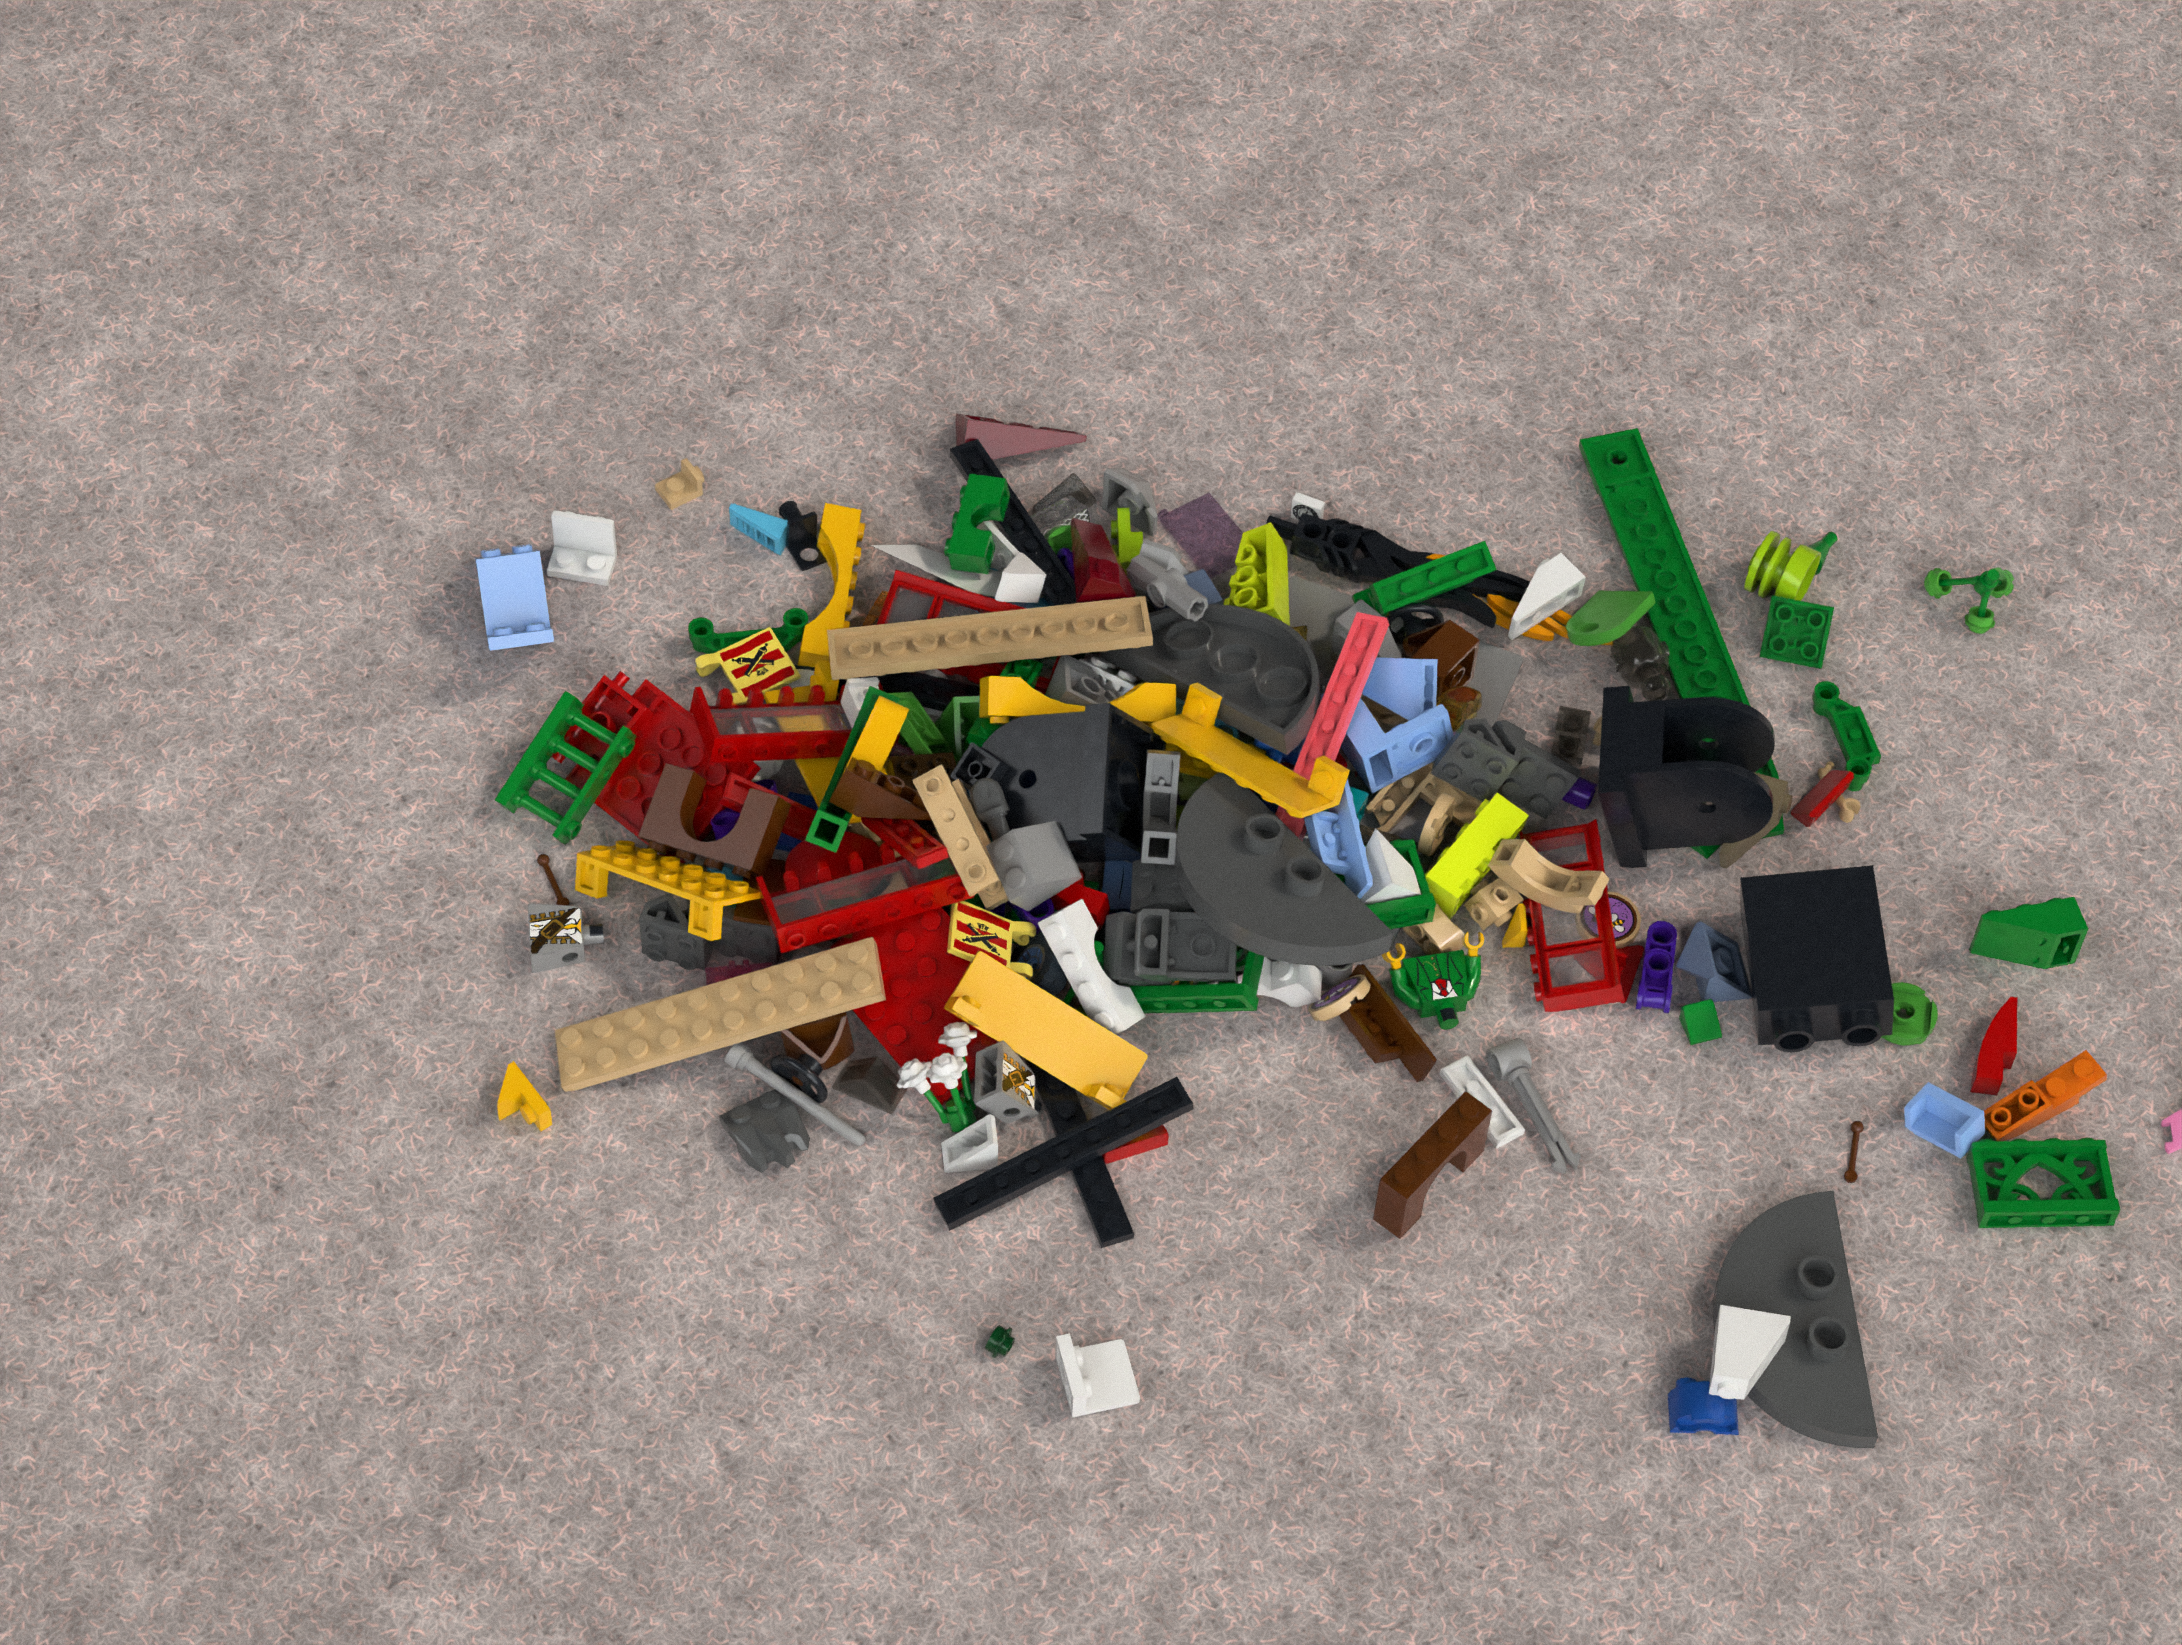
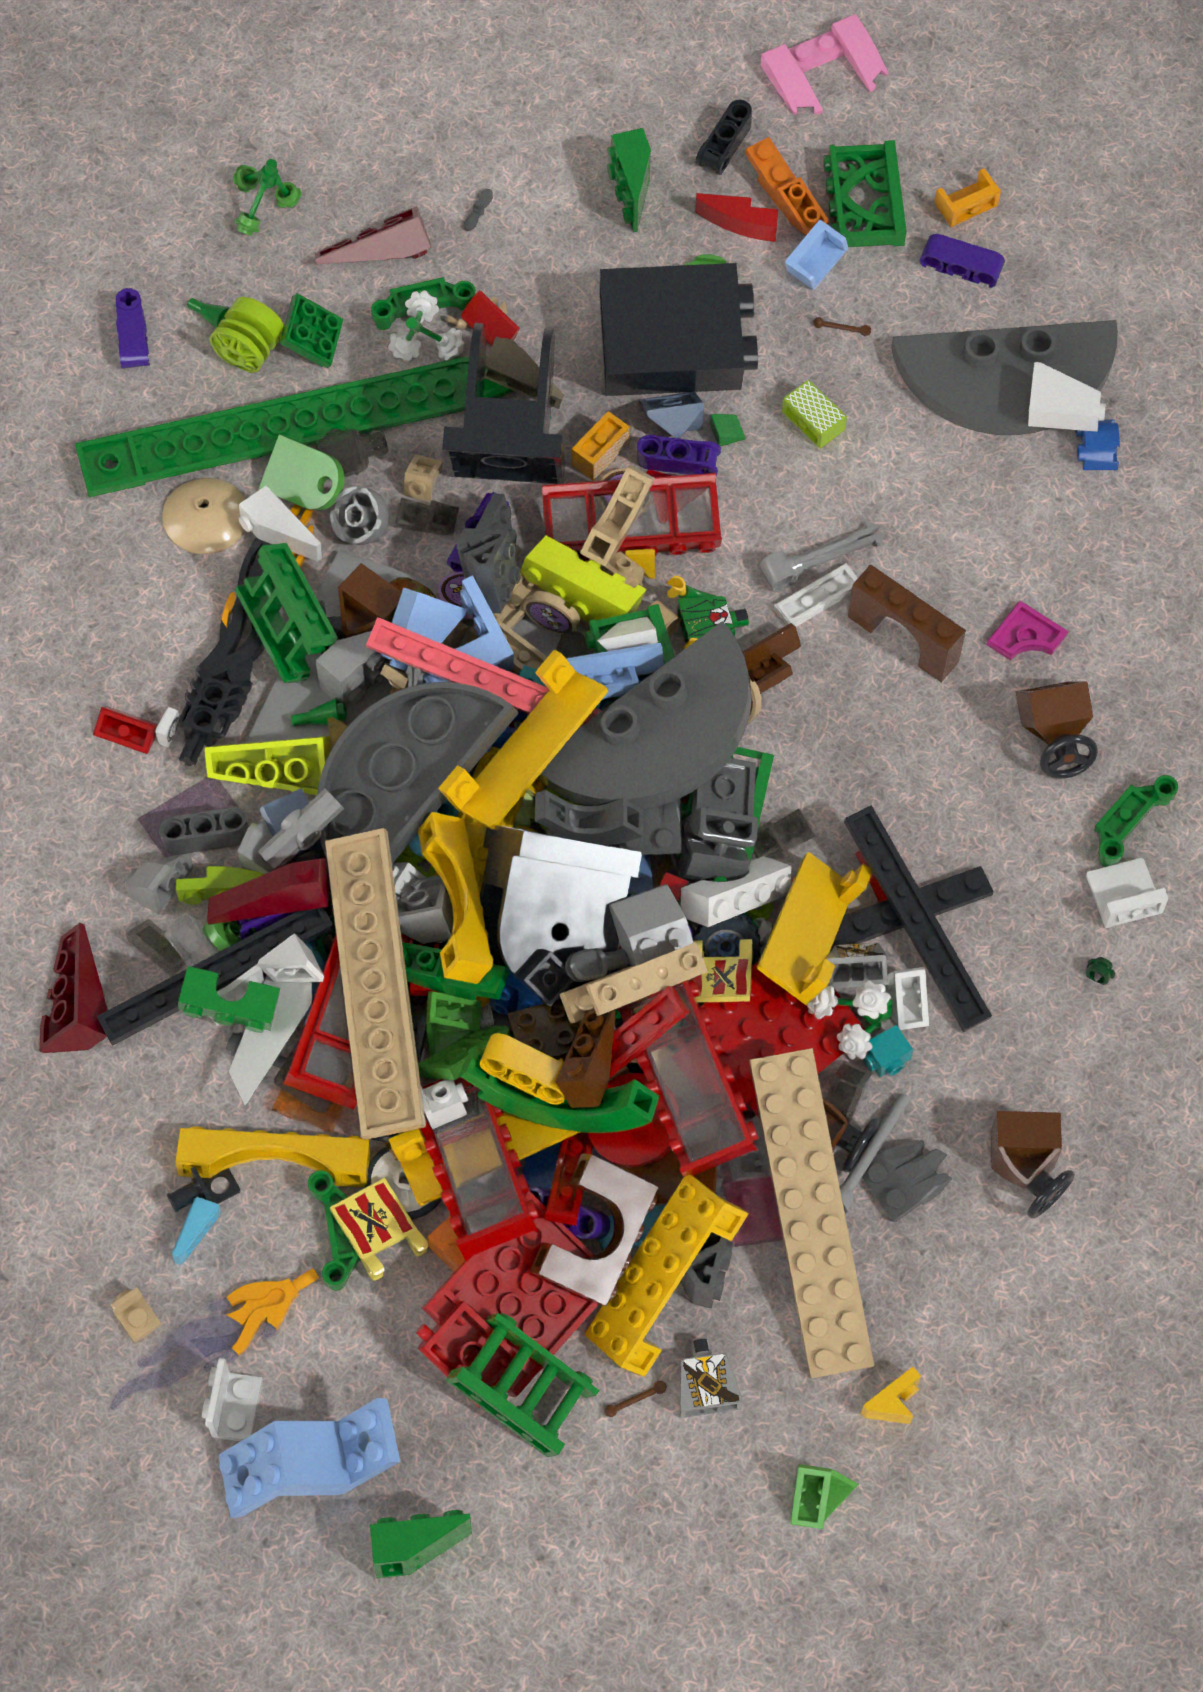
camera: 90 degrees left, 10 degrees up
(423, 678) = (410, 1544): none -> green slope
(431, 1025) = (818, 1495): none -> bright green slope
(657, 559) = (231, 1331): none -> piece
(776, 1233) = (1026, 1151): none -> reddish brown piece
(910, 1122) = (888, 1052): none -> teal brick
(1176, 1044) = (782, 835): none -> clear smoke slope
(1187, 531) = (191, 824): none -> dark grey beam
(1191, 1385) = (1128, 813): none -> green plate
(1312, 477) = (125, 729): none -> red slope
(1317, 1311) = (1057, 718): none -> reddish brown piece
(1319, 635) = (319, 714): none -> green cone
(1439, 1308) = (1025, 631): none -> dark pink tile
(1559, 669) = (359, 515): none -> light grey cylinder
(1572, 535) = (207, 528): none -> tan dish
(1664, 893) = (600, 446): none -> light orange panel
(1721, 1105) = (814, 414): none -> lime panel
(1788, 481) = (131, 329): none -> dark purple piece
(1790, 720) = (423, 307): none -> white plant
(1923, 703) = (397, 239): none -> wedge
(1956, 1281) = (962, 259): none -> dark purple beam
(1984, 799) = (478, 209): none -> dark grey piece
(2047, 1295) = (969, 200): none -> light orange panel
(2125, 1045) = (716, 149): none -> black piece

